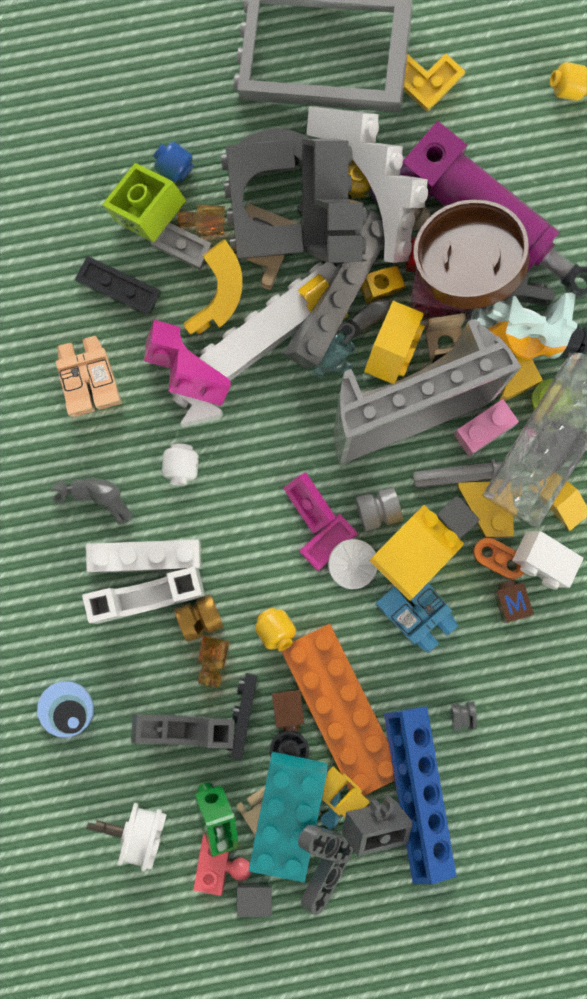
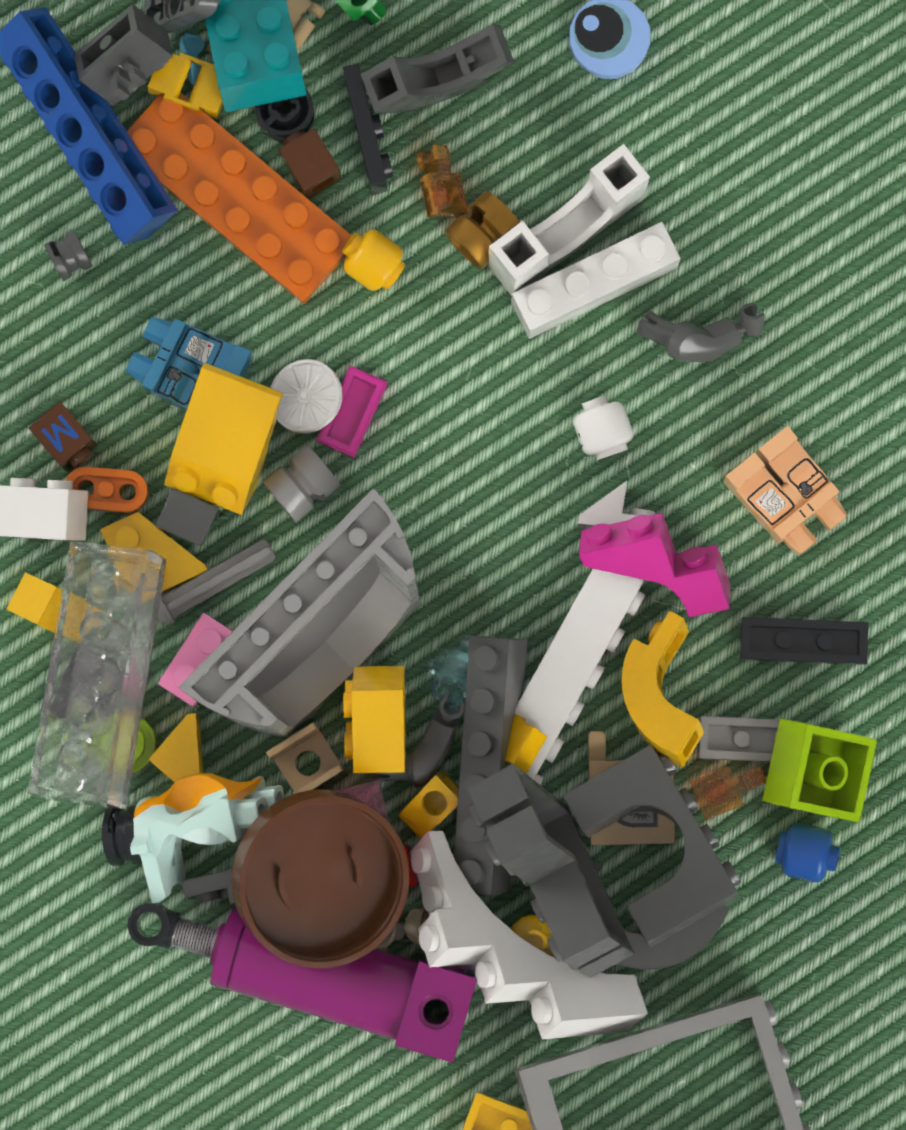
camera: 160 degrees right, 0 degrees up
(309, 503) = (401, 452): dark pink plate -> none

